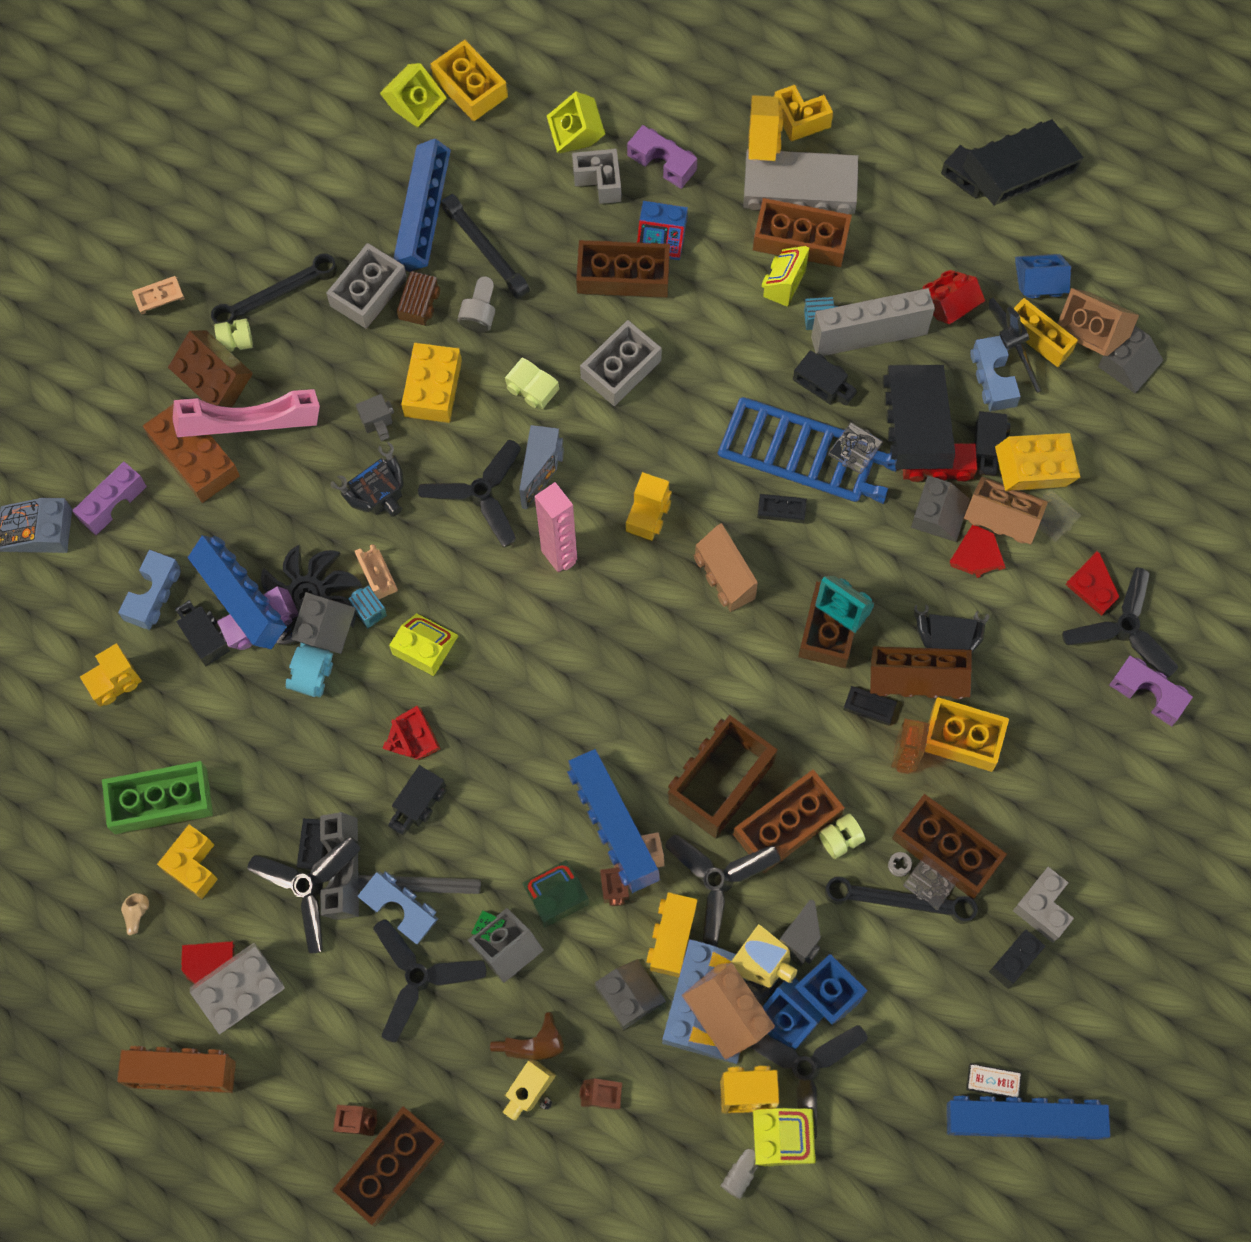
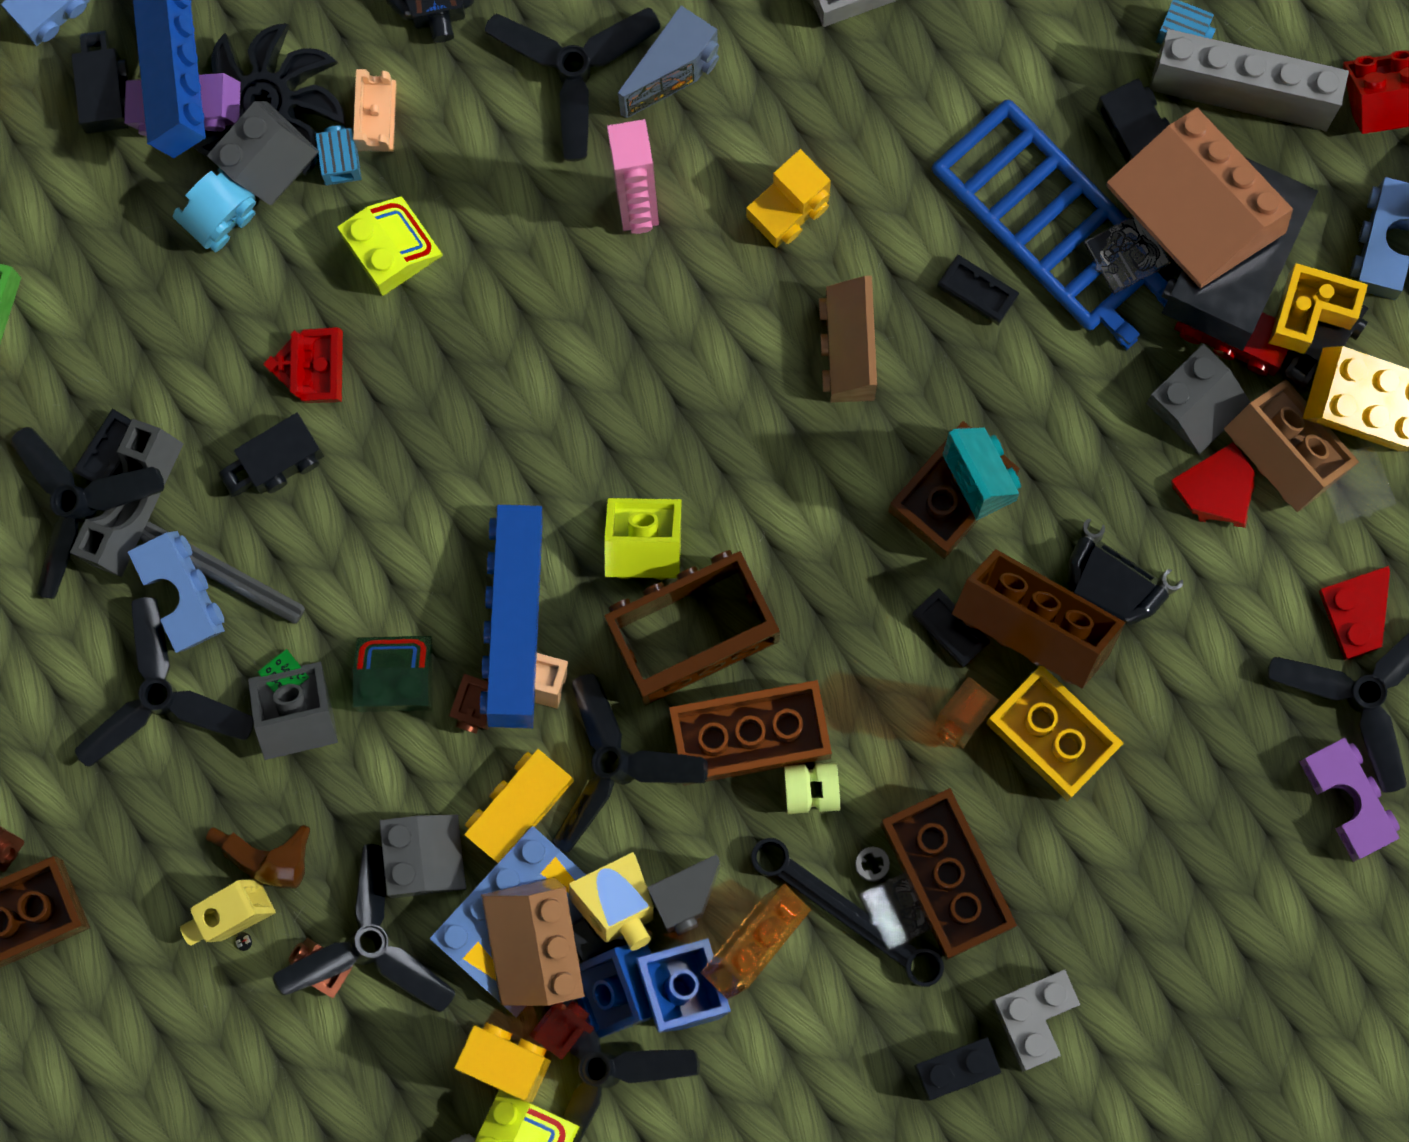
camera: 30 degrees right, 10 degrees up
(645, 1067) = (390, 961): none -> black piece
(664, 740) = (643, 538): none -> neon yellow slope
(771, 1051) = (561, 1028): none -> clear red bracket
(859, 941) = (756, 941): none -> clear orange brick
(884, 394) = (1201, 198): none -> nougat slope
(976, 420) = (1314, 297): none -> yellow brick

